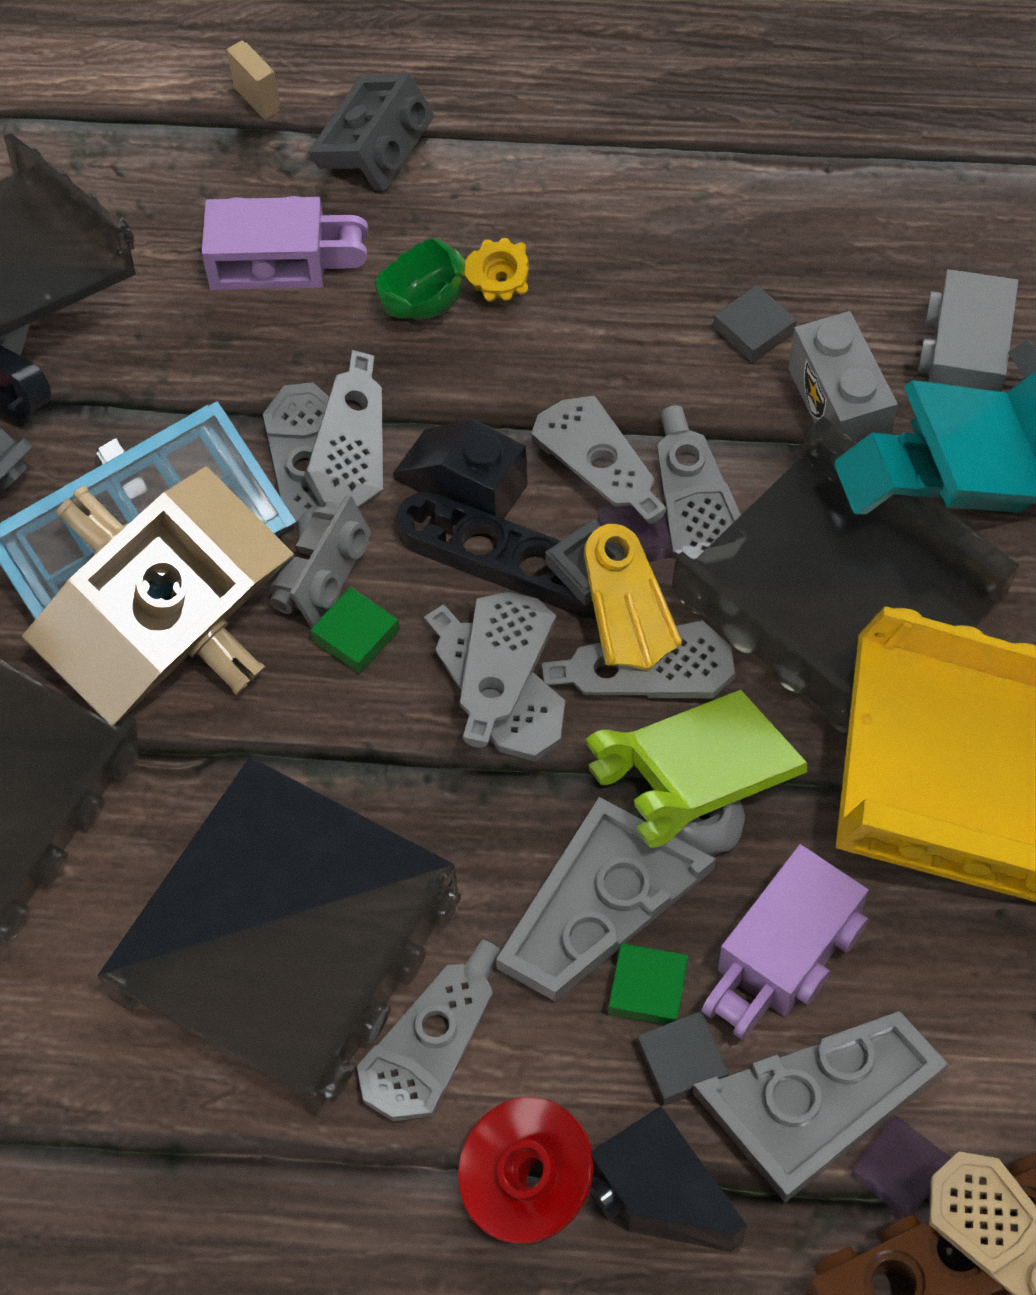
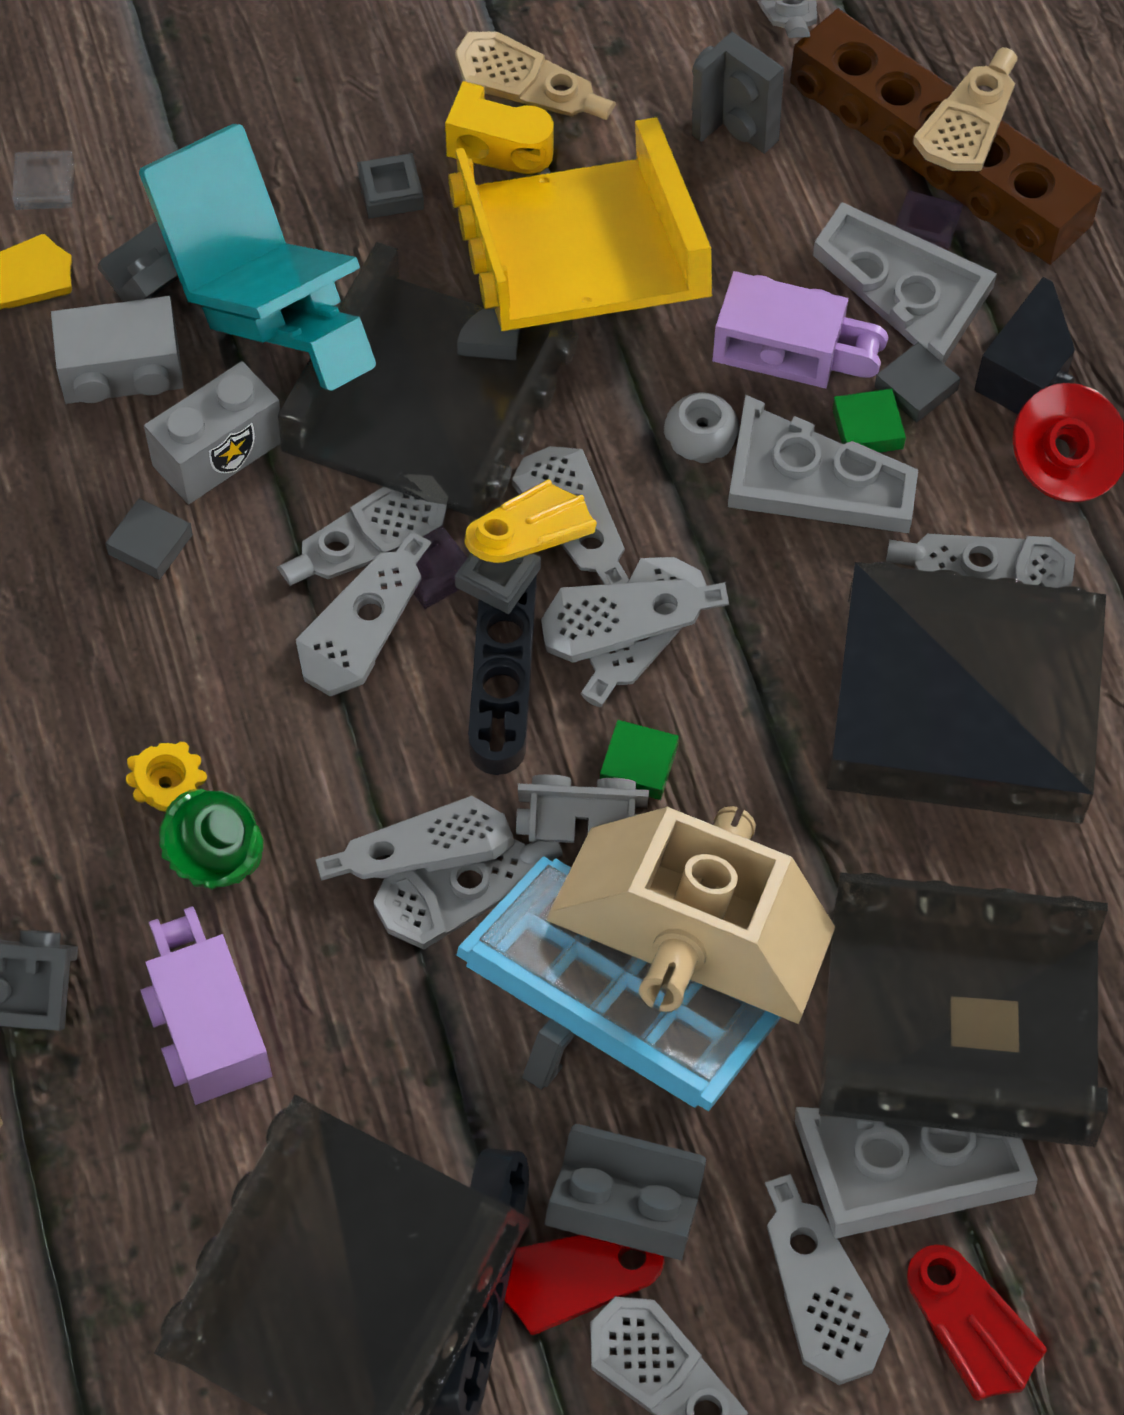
camera: 115 degrees left, 0 degrees up
(467, 466) = (427, 721): black slope -> none
(696, 762) = (655, 428): lime flag -> none

